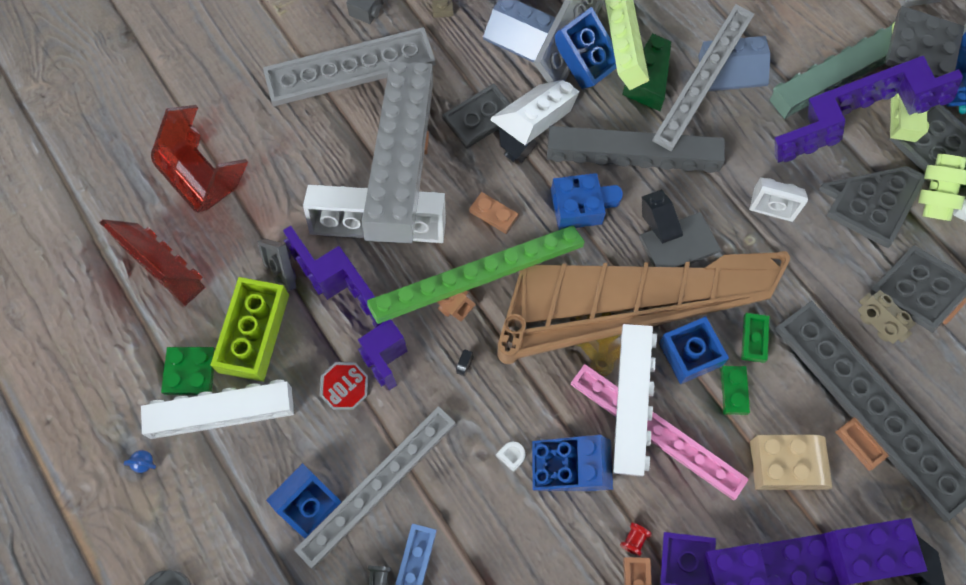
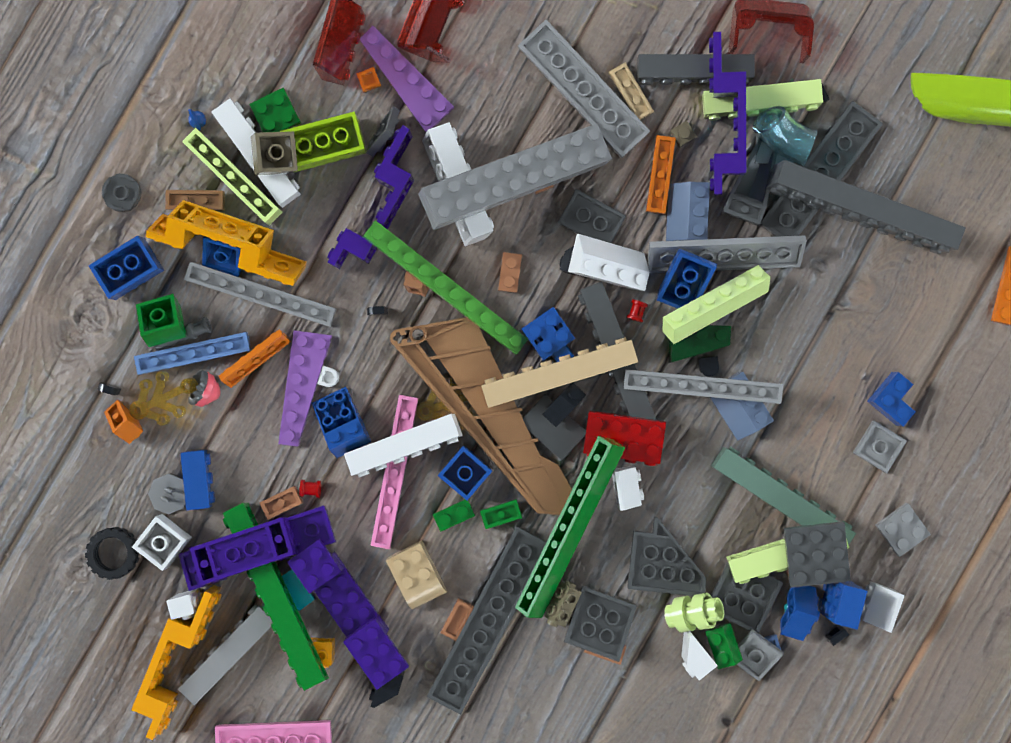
camera: 65 degrees right, 20 degrees up
(215, 258) = (368, 79): none -> orange tile
(226, 448) = (232, 176): none -> yellowish green brick
(227, 509) = (207, 198): none -> medium nougat plate
(229, 381) = (274, 153): none -> dark tan slope
(241, 520) = (254, 240): none -> light orange bracket
(250, 218) = (414, 89): none -> medium lavender wing
(343, 385) = (317, 232): piece -> none
(369, 30) = (631, 91): none -> tan tile
(449, 532) = (254, 358): none -> orange plate
(471, 38) = (660, 174): none -> orange plate
(494, 481) = (305, 365): none -> medium lavender wing
(594, 112) = (637, 311): none -> red bush
(627, 204) = (559, 373): none -> tan brick
(680, 76) = (708, 366): none -> black tile
(724, 174) = (639, 436): none -> red bracket
(806, 267) = (570, 527): none -> green brick
(826, 111) = (710, 498): dark purple bracket -> none

